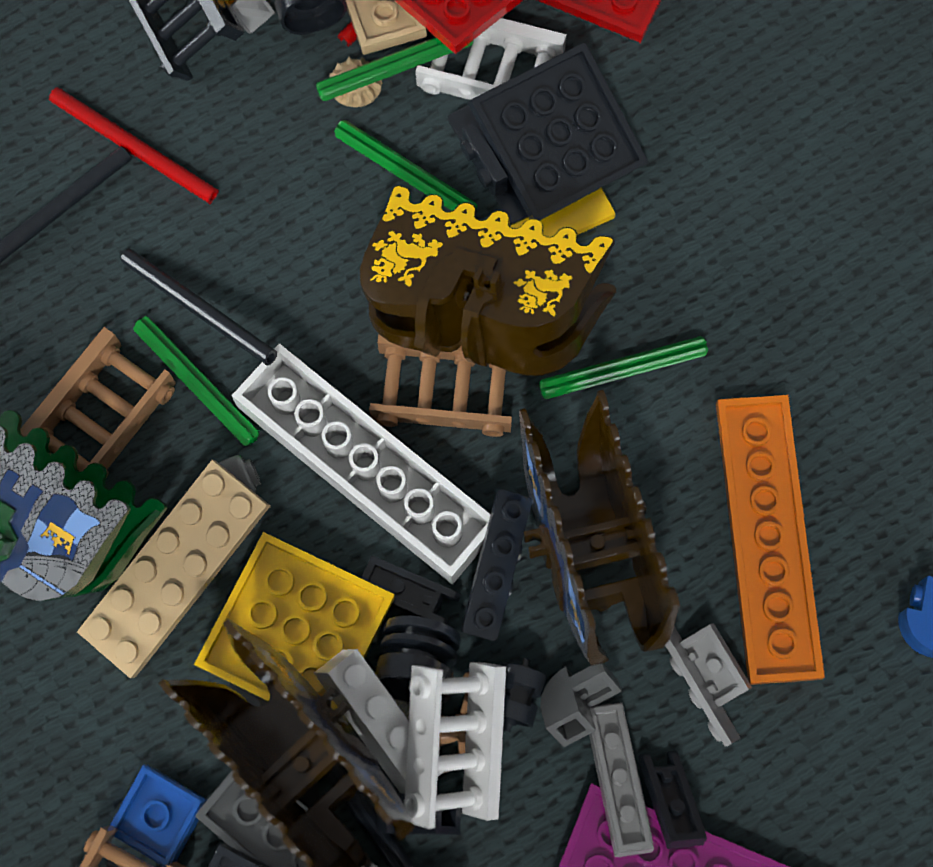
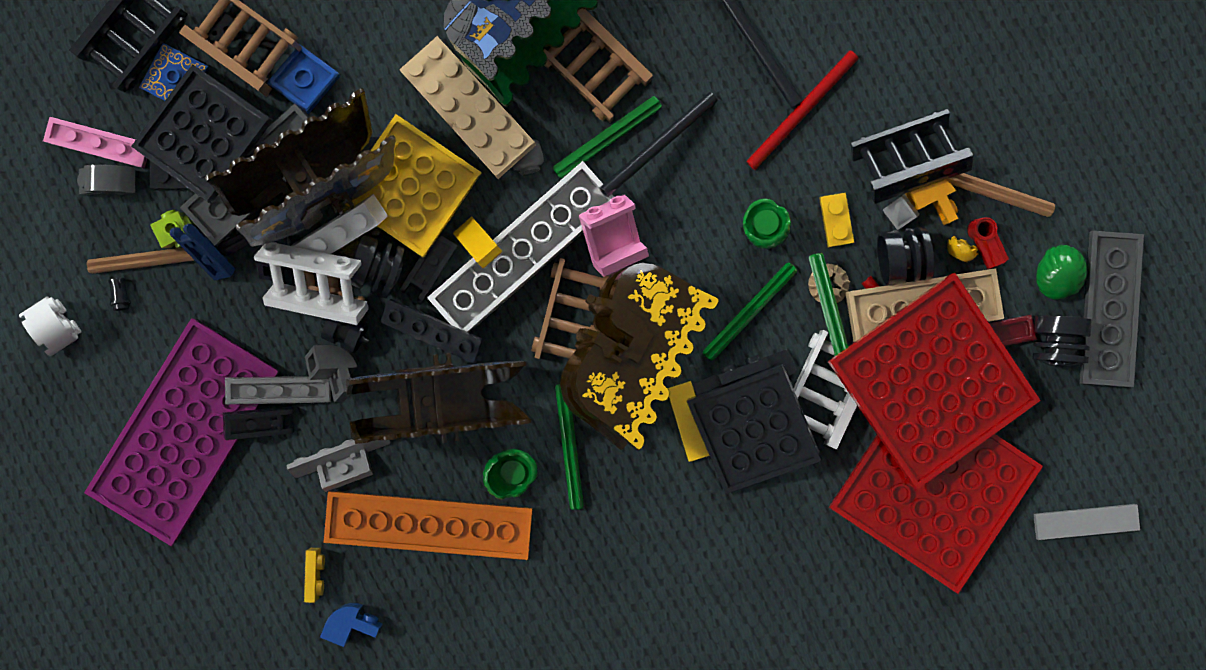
camera: 100 degrees right, 15 degrees up
(271, 84) = (836, 220): none -> yellow plate
(288, 159) = (766, 224): none -> green piece
(329, 345) = (612, 235): none -> bright pink panel
(363, 519) = (477, 242): none -> yellow tile
(675, 433) = (509, 473): none -> green piece
(887, 682) = (313, 585): none -> yellow plate

